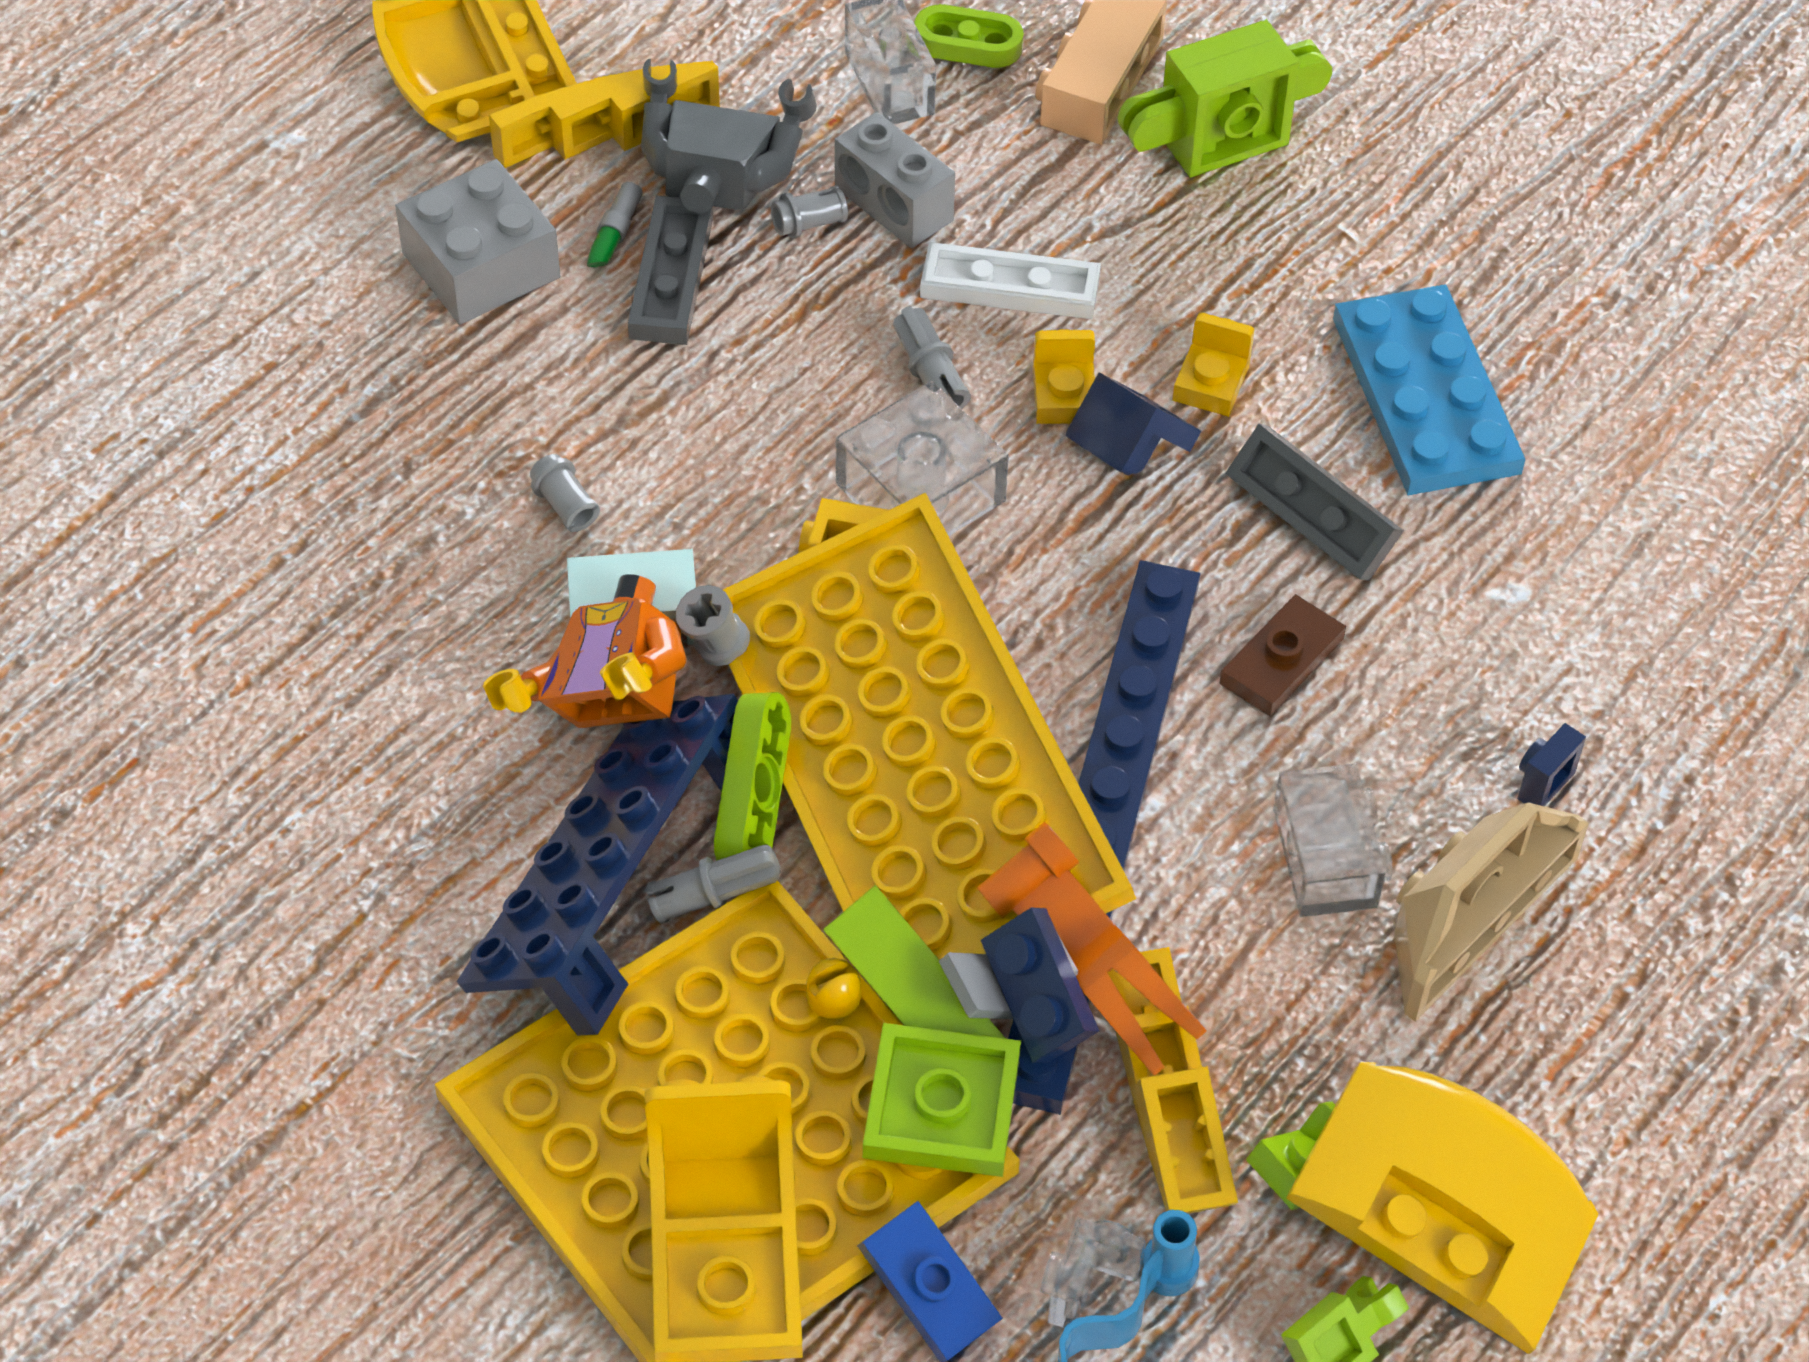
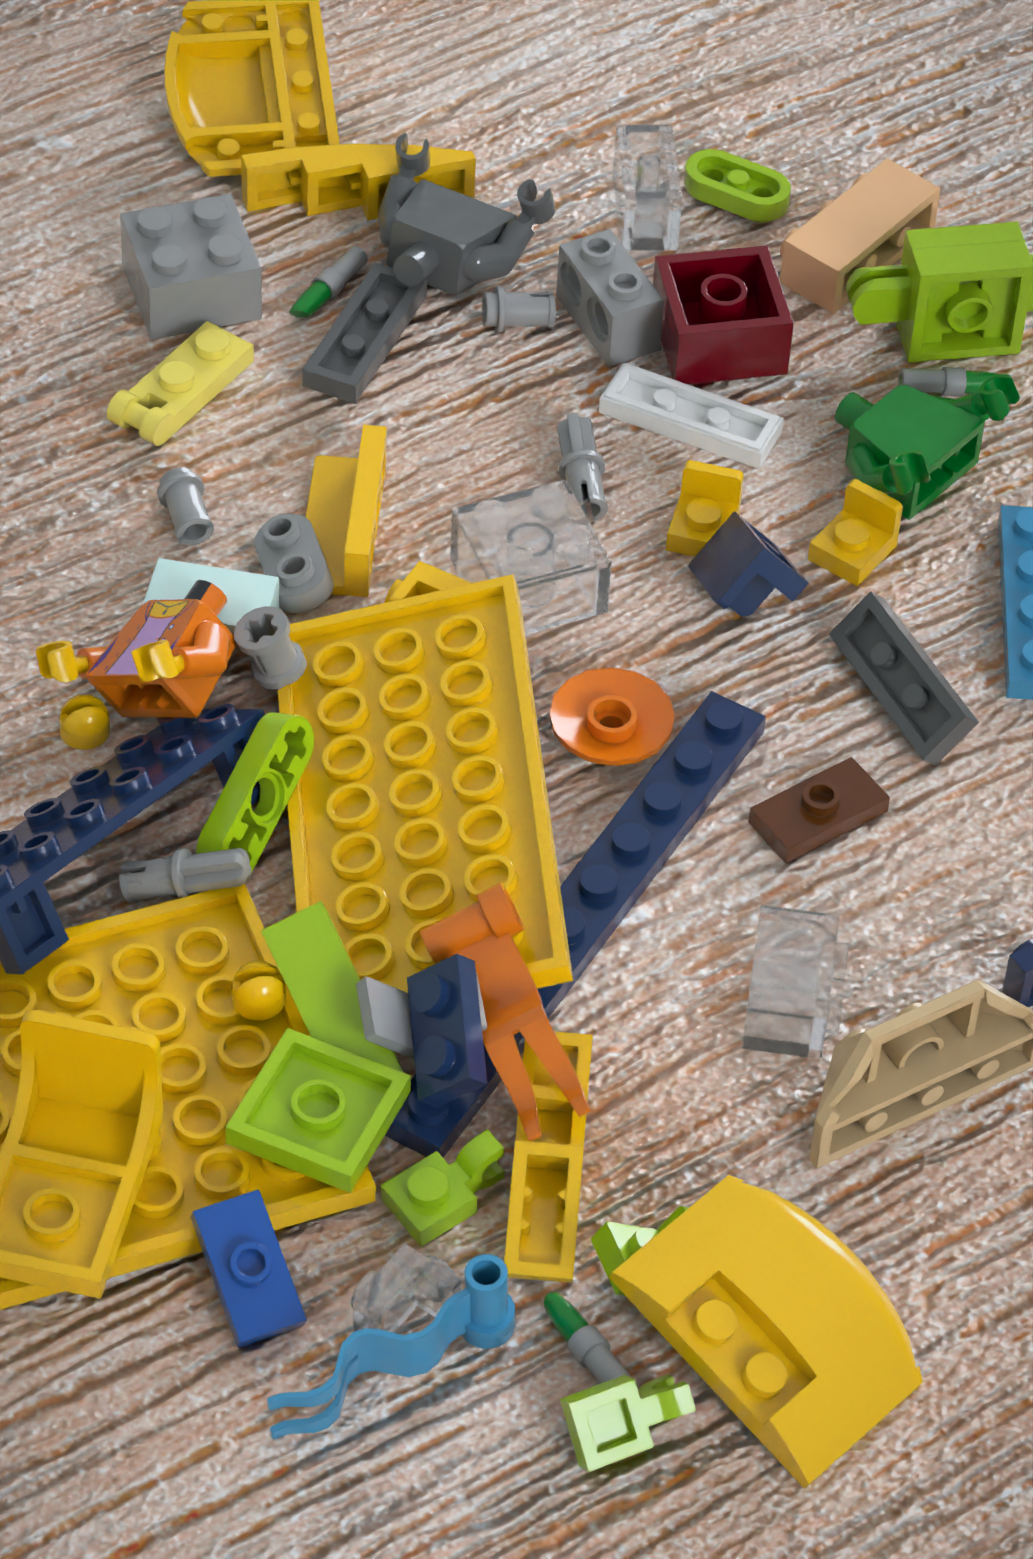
camera: 15 degrees right, 5 degrees down
(510, 364) = (181, 384): none -> light yellow plate
(552, 748) = (84, 722): none -> yellow hinge
(684, 518) = (293, 553): none -> light grey plate
(722, 468) = (346, 510): none -> yellow panel
(1013, 173) = (723, 315): none -> dark red brick
(1062, 593) = (612, 716): none -> orange dish
(1076, 1150) = (441, 1195): none -> lime plate
(1237, 256) = (917, 441): none -> green torso
(1238, 188) = (948, 381): none -> light grey piece
(1273, 1264) = (583, 1339): none -> light grey piece

